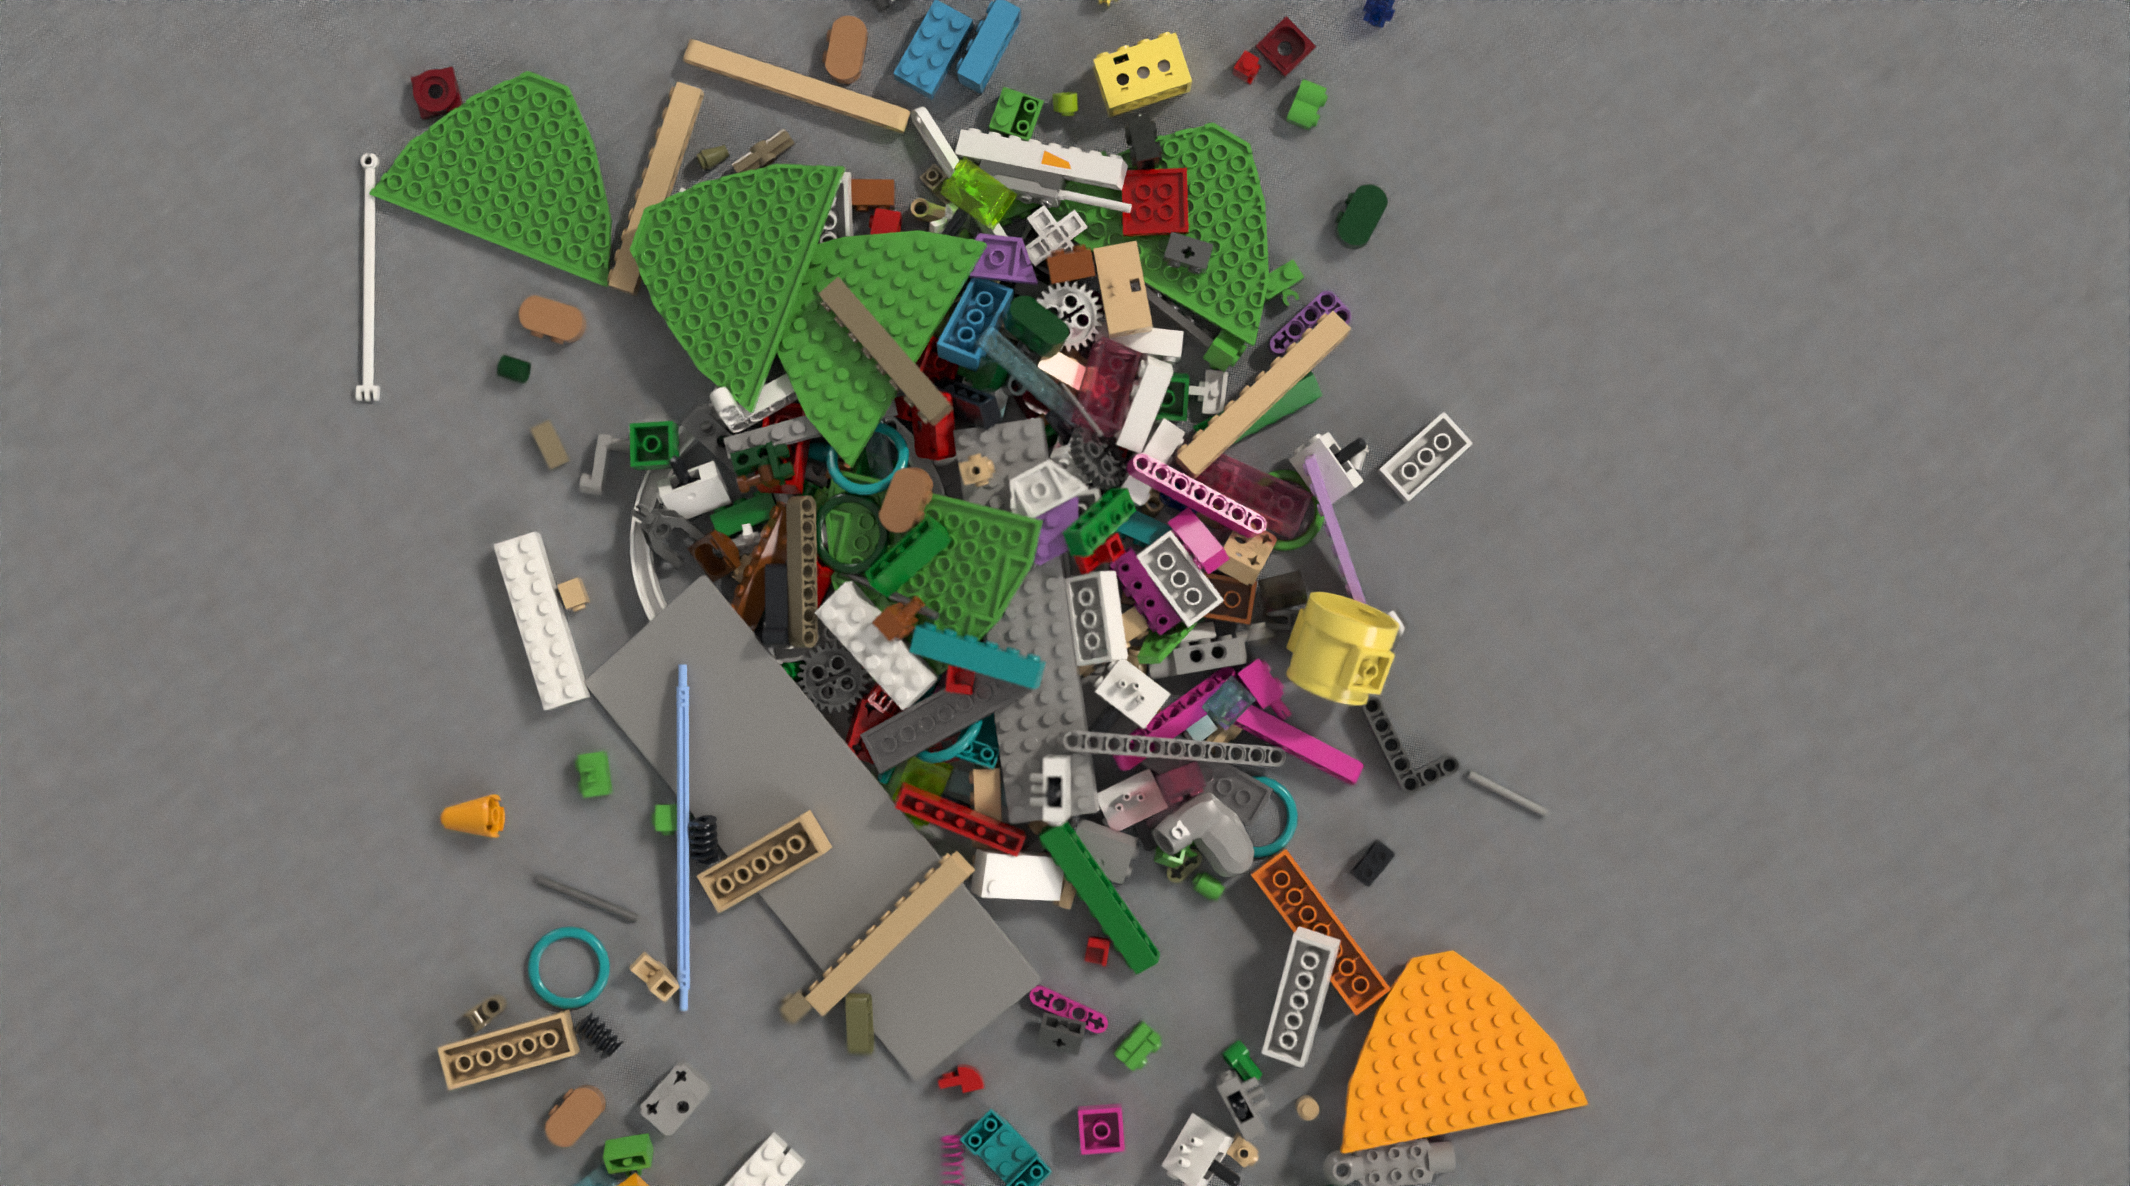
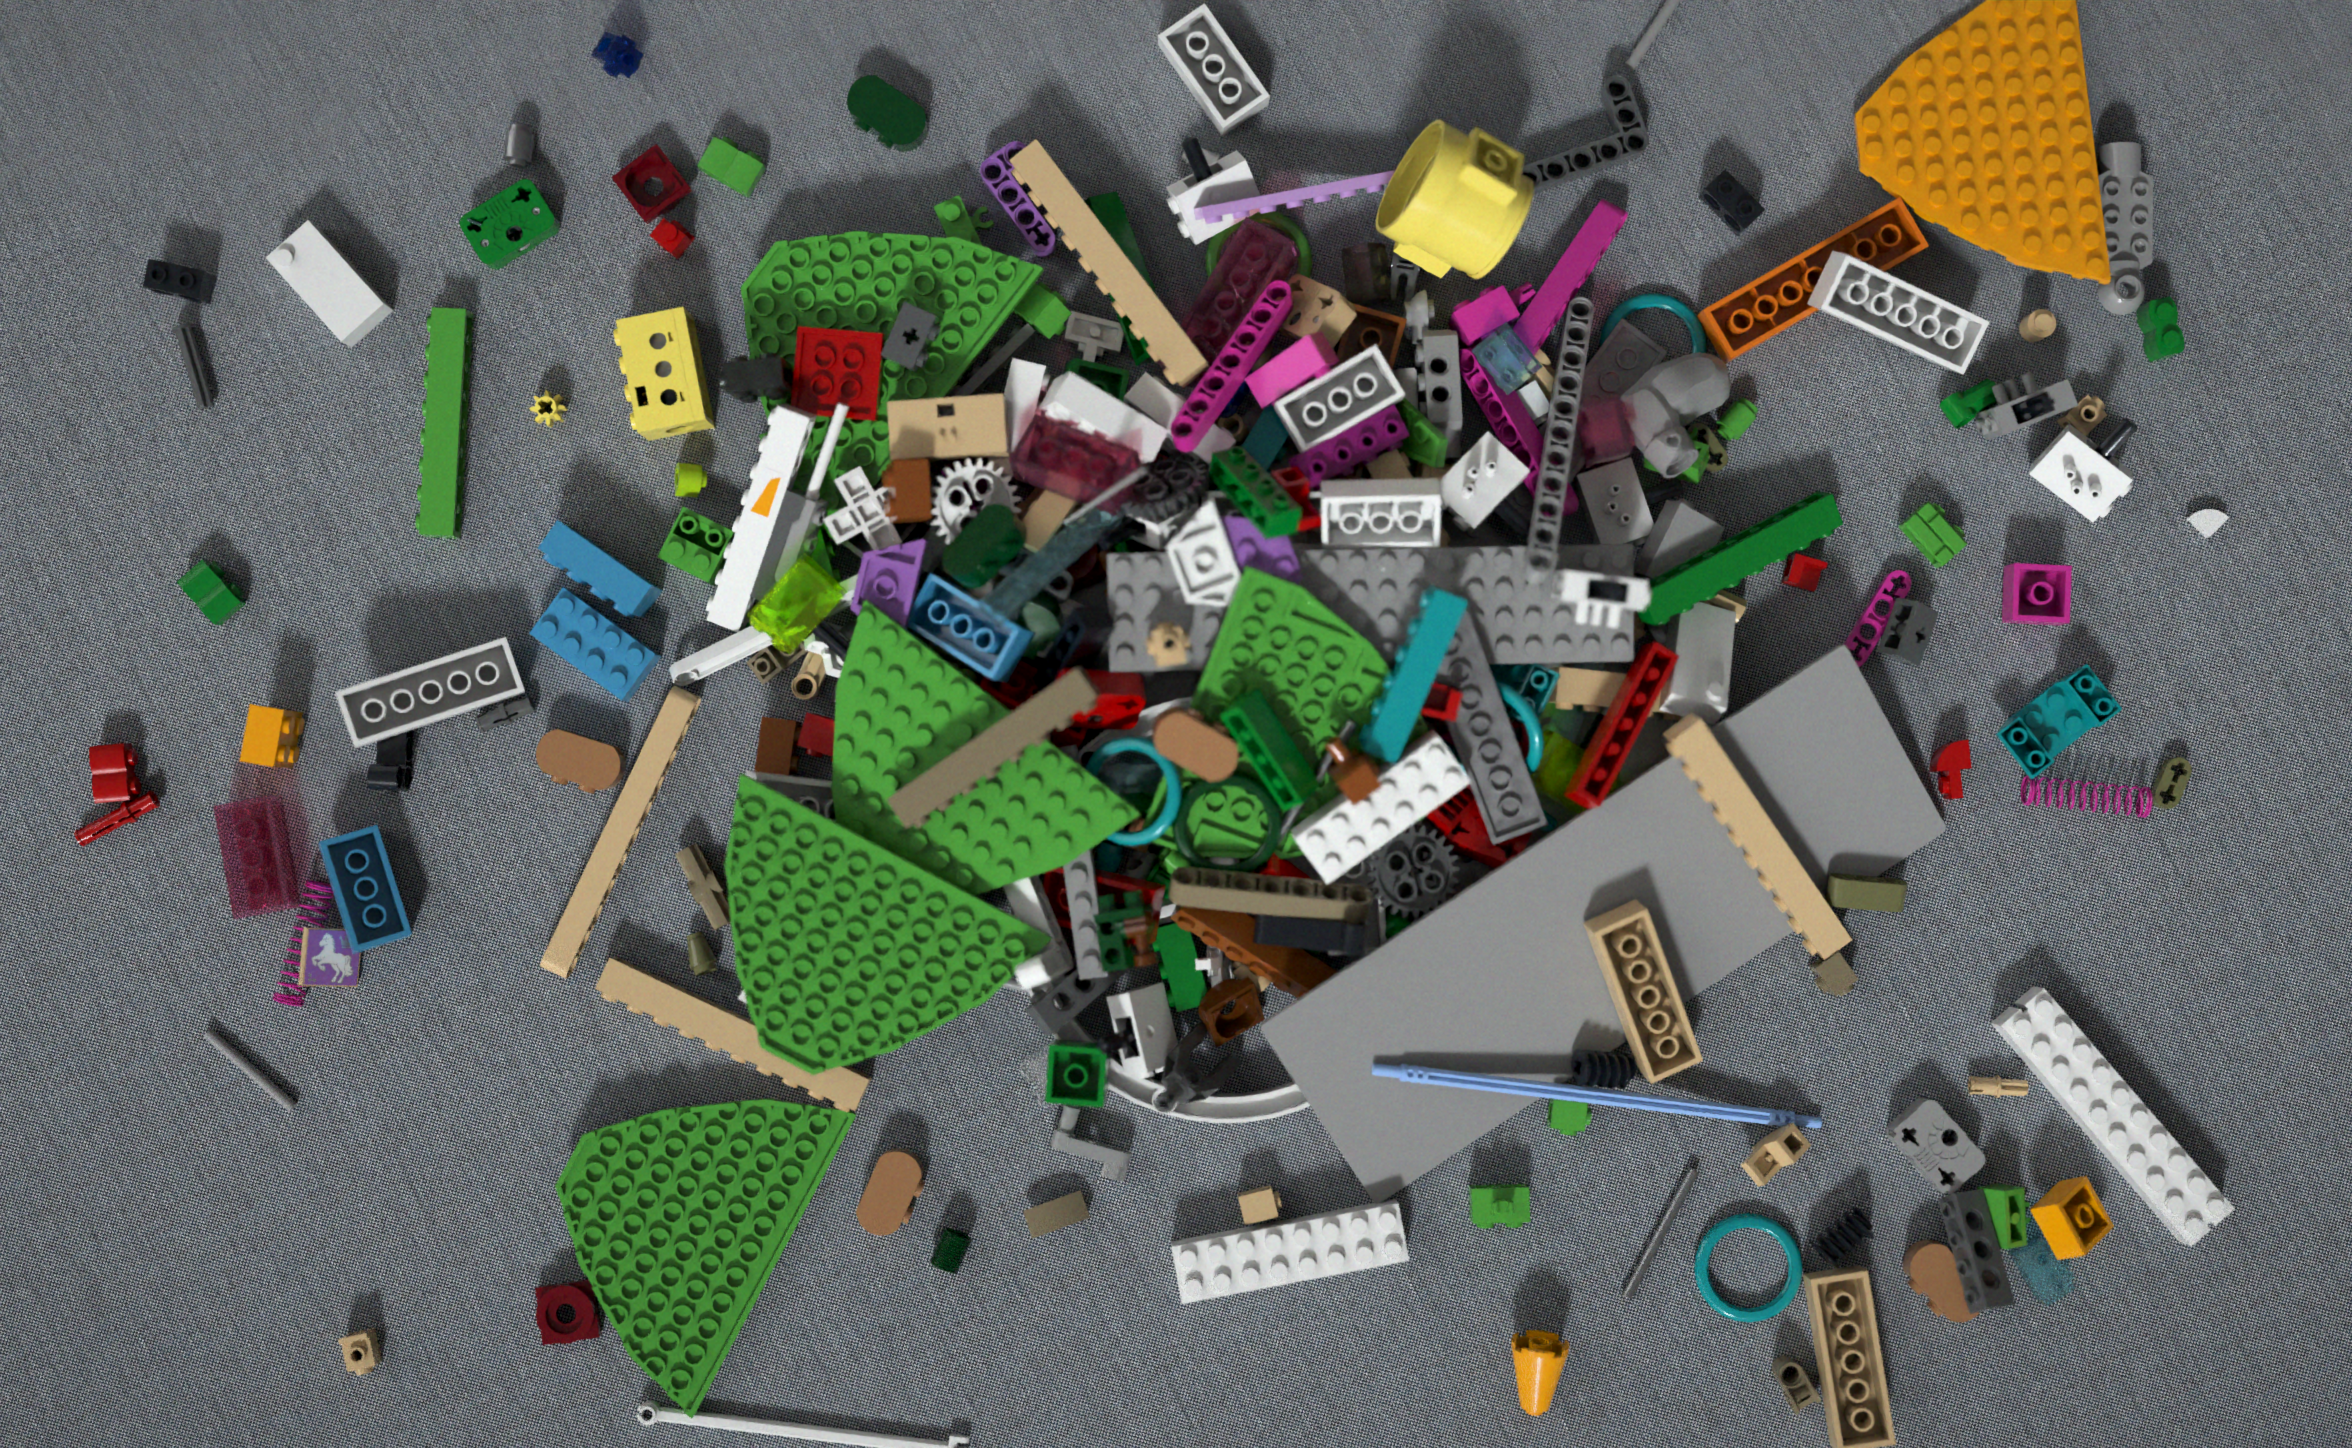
camera: 85 degrees left, 0 degrees up
(592, 1145) = (1976, 1251): none -> dark grey brick
(725, 1140) = (1997, 1086): none -> tan axle

